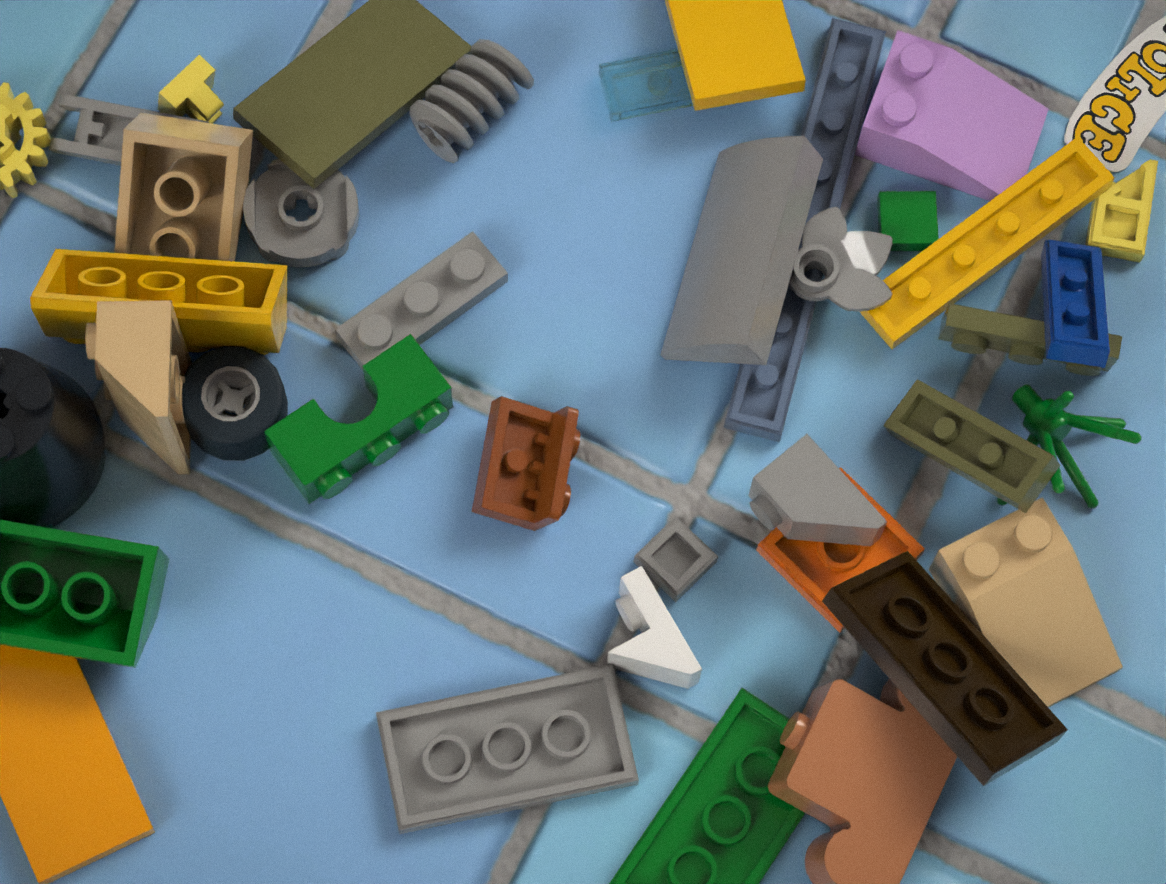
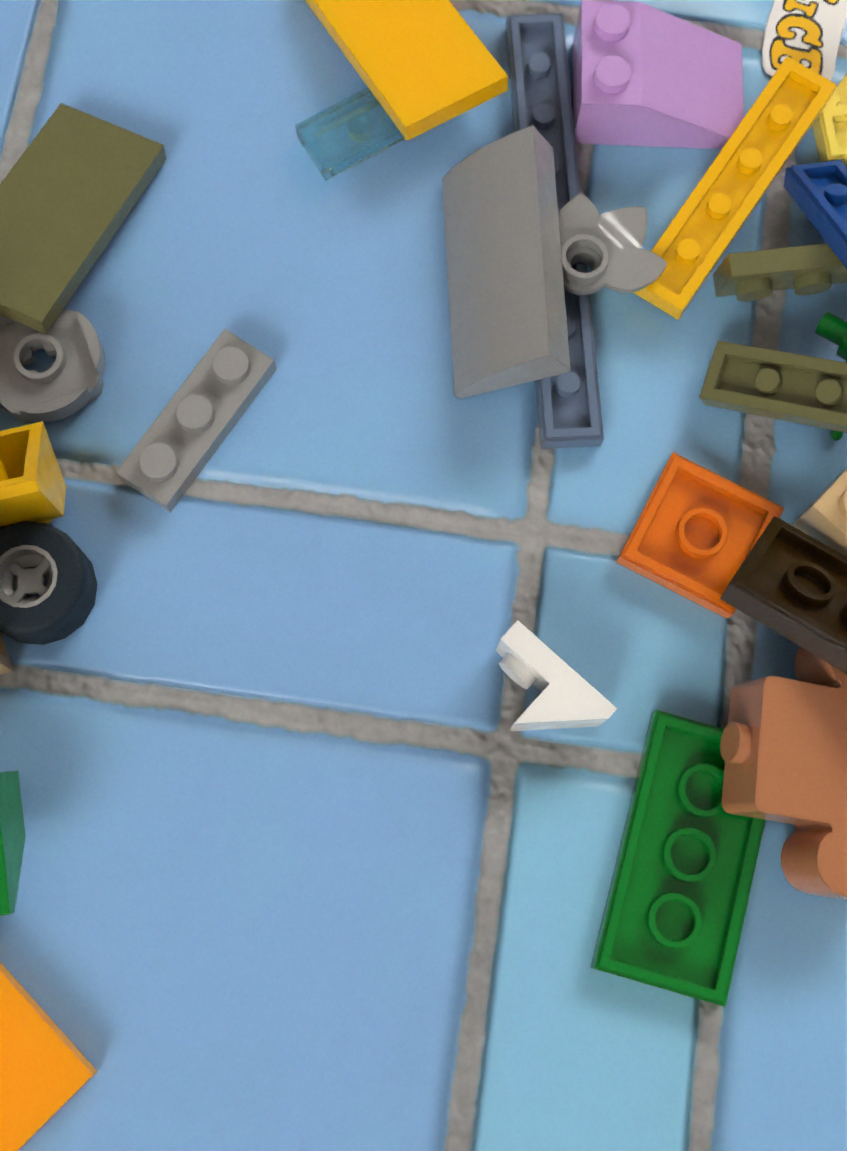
camera: 20 degrees left, 5 degrees up
(326, 453) = (148, 605): green arch -> none
(466, 95) = (174, 191): light grey piece -> none
(506, 748) = (437, 855): light grey tile -> none
(526, 464) = (360, 549): dark orange bracket -> none
(675, 558) = (541, 597): light grey tile -> none
(813, 499) = (667, 493): light grey slope -> none
(908, 218) = (649, 184): green tile -> none

